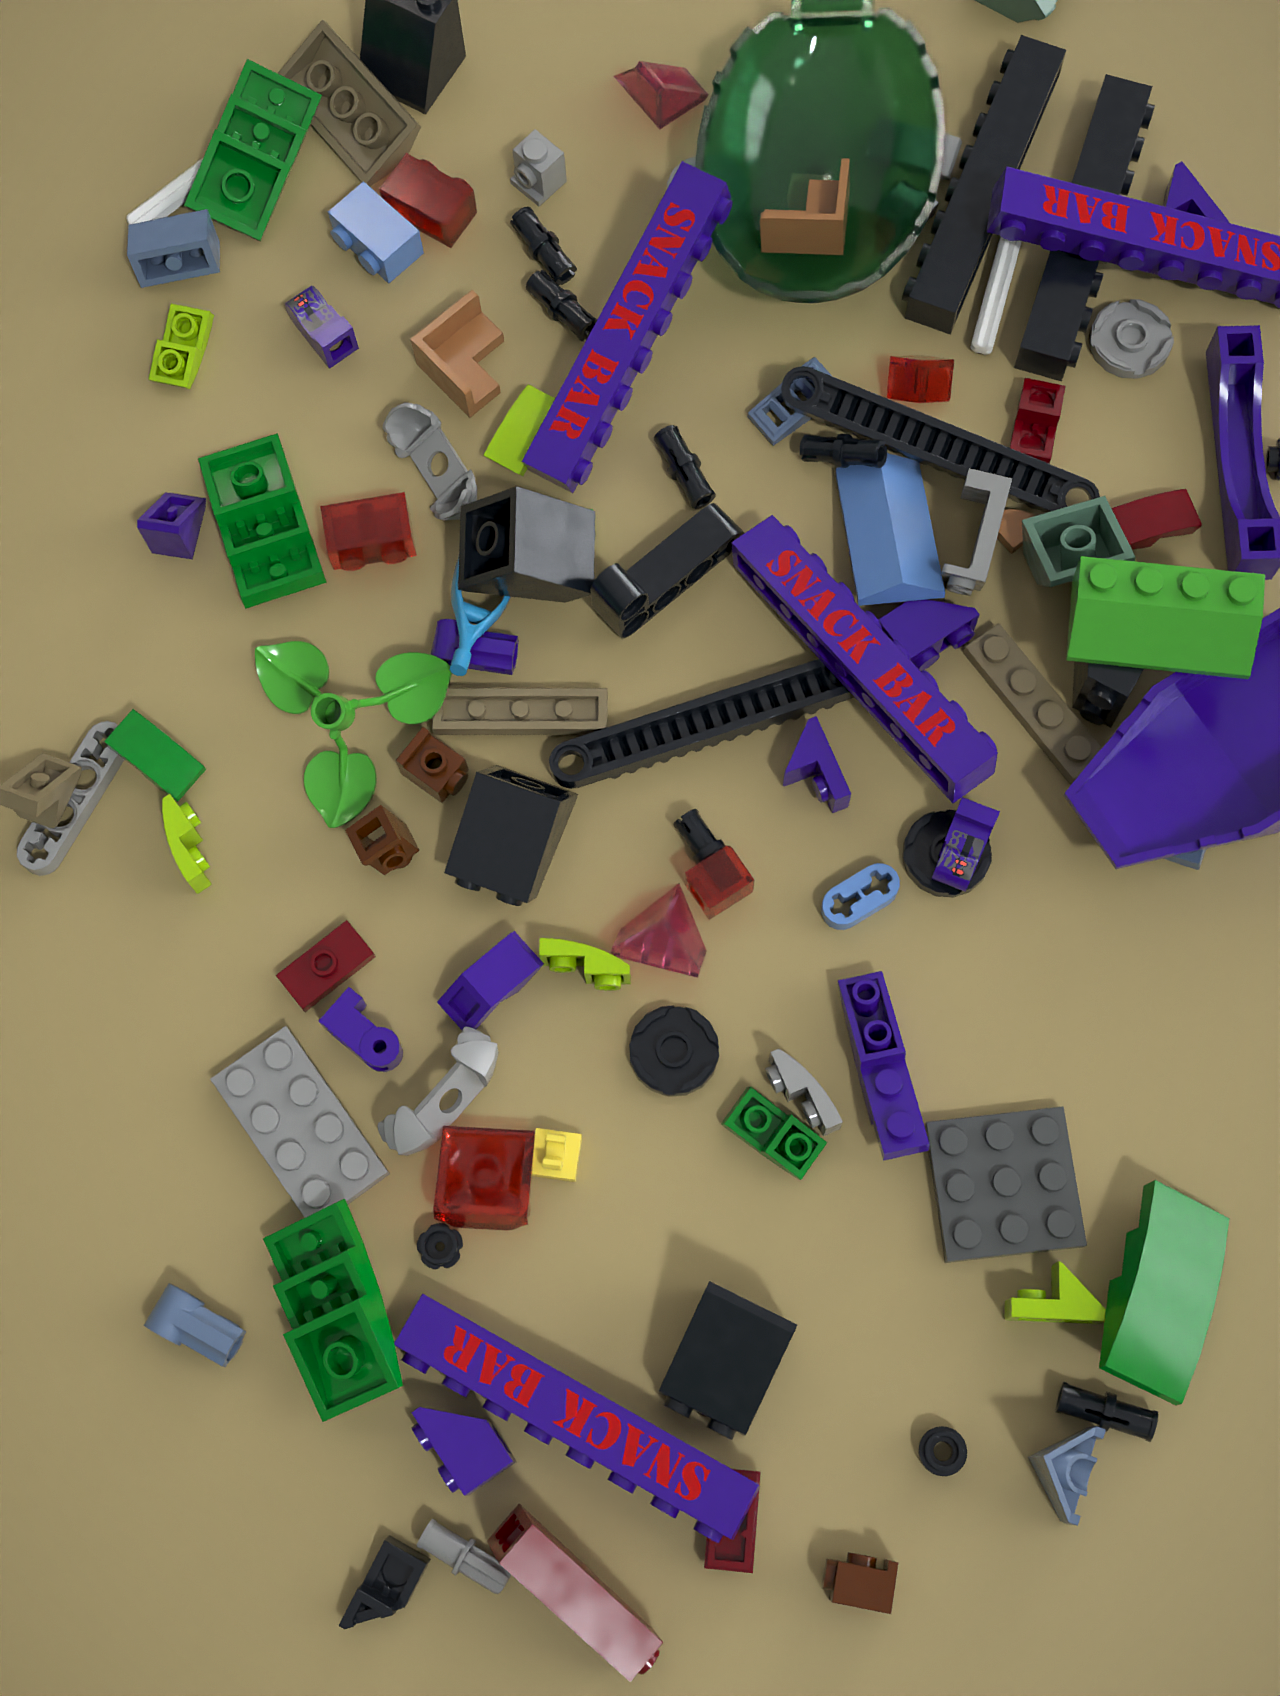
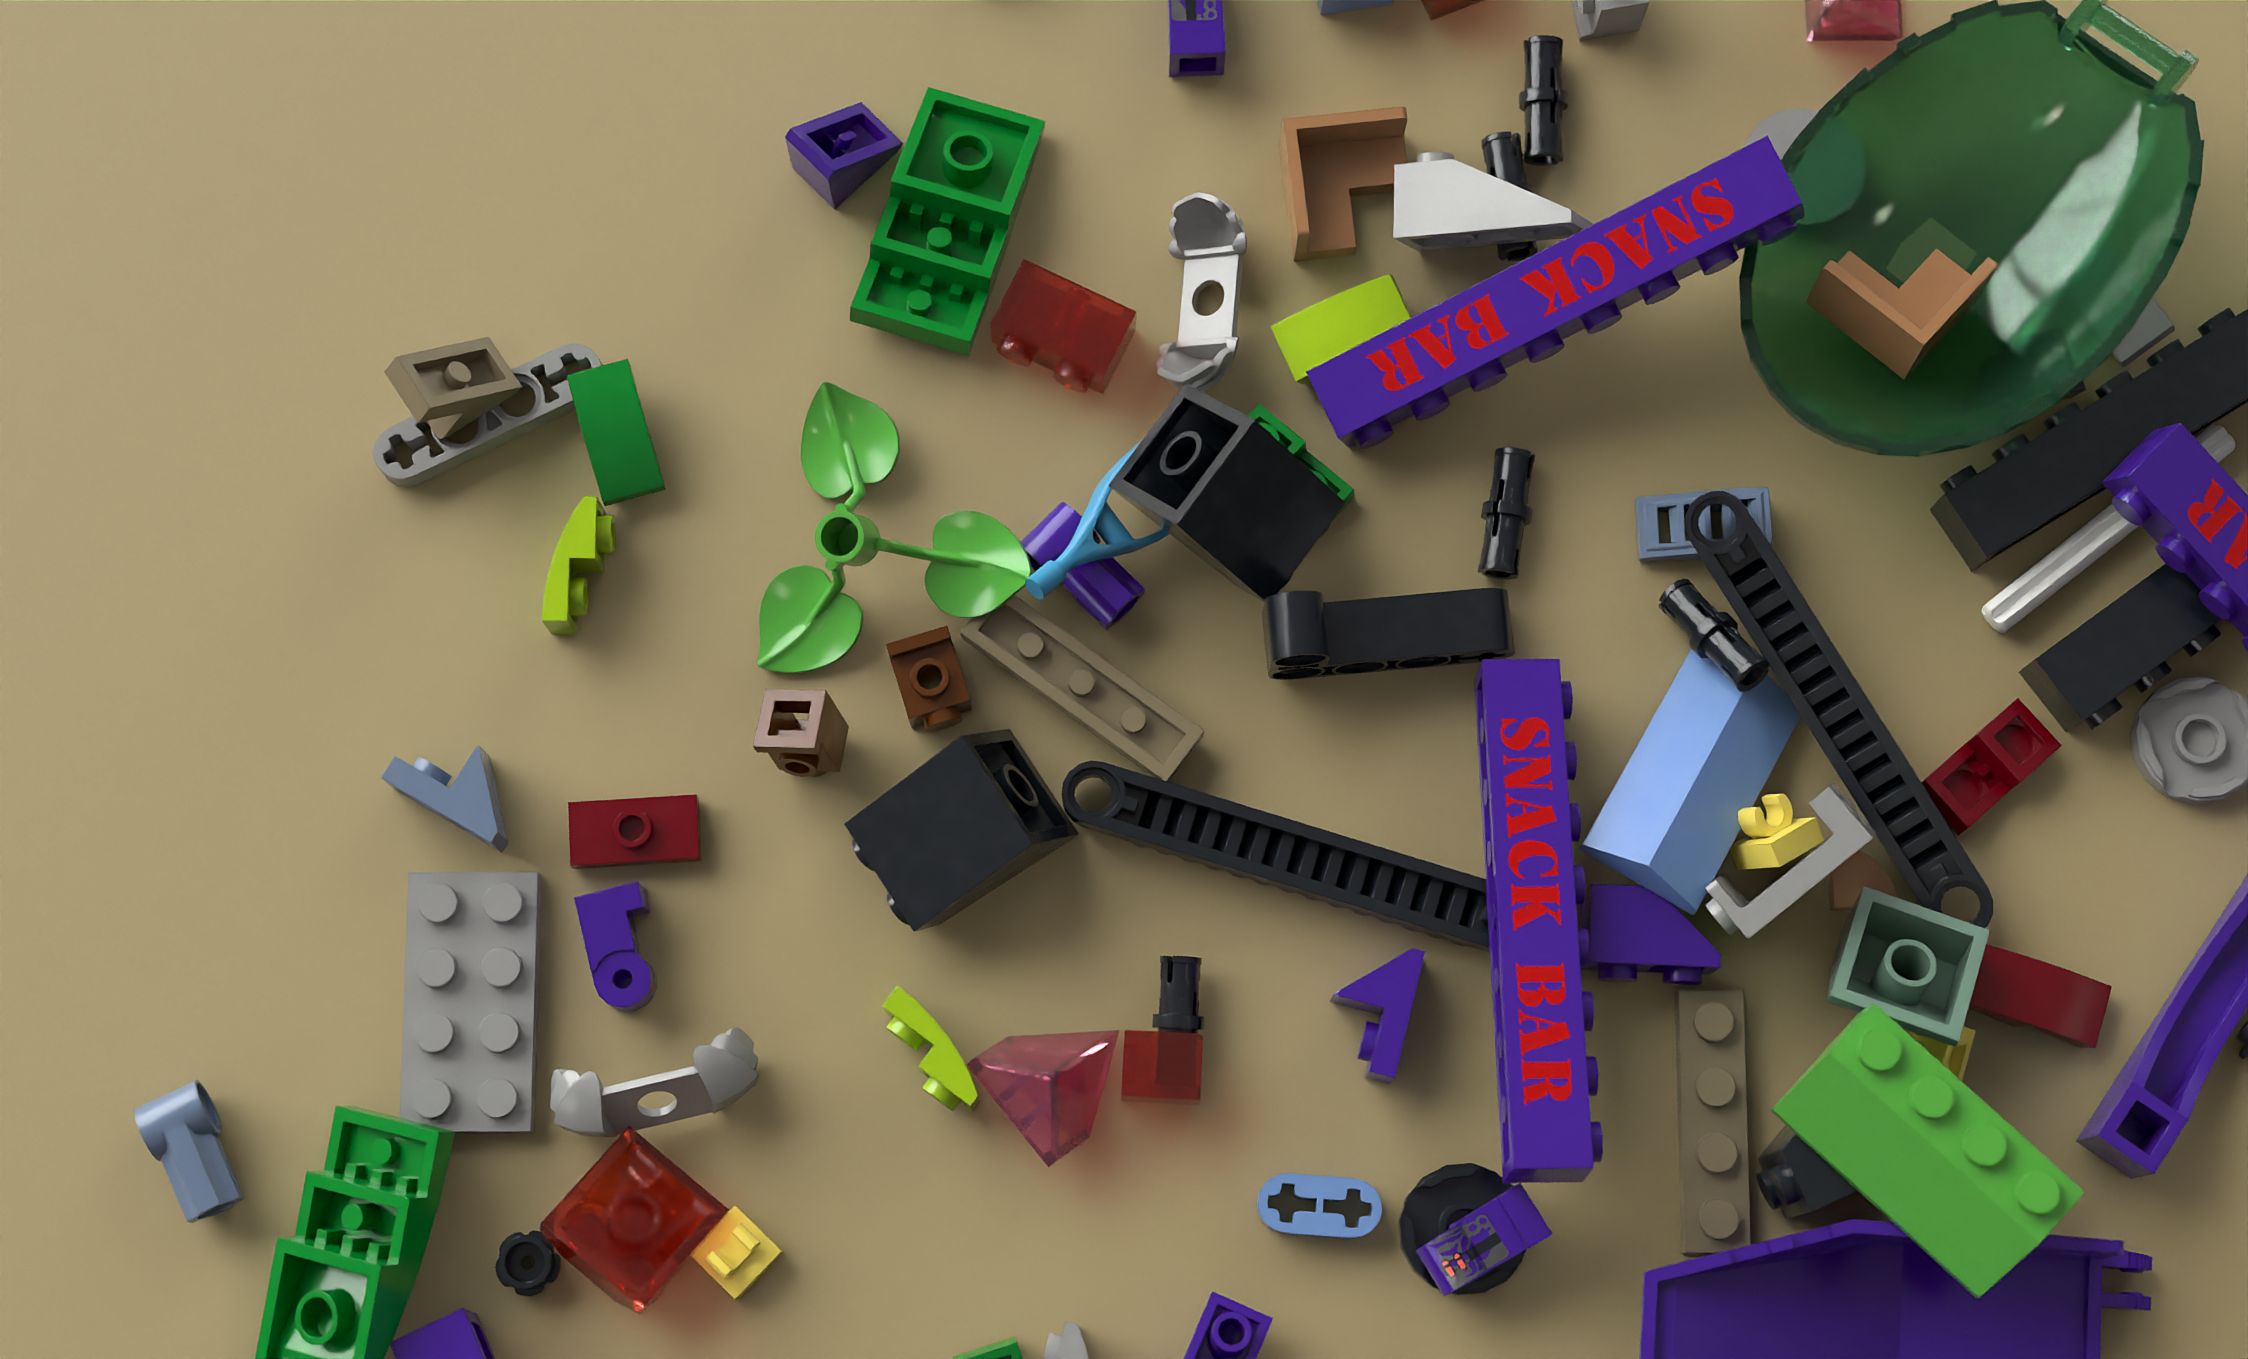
camera: 30 degrees right, 5 degrees up
(216, 1019) = (469, 802): none -> sand blue slope
(490, 981) = (806, 993): dark purple slope -> none
(544, 319) = (1456, 206): none -> slope
(674, 1050) = (962, 1230): black tile -> none
(920, 379) = (1883, 607): clear red panel -> none
(953, 529) = (1777, 838): none -> light yellow tile

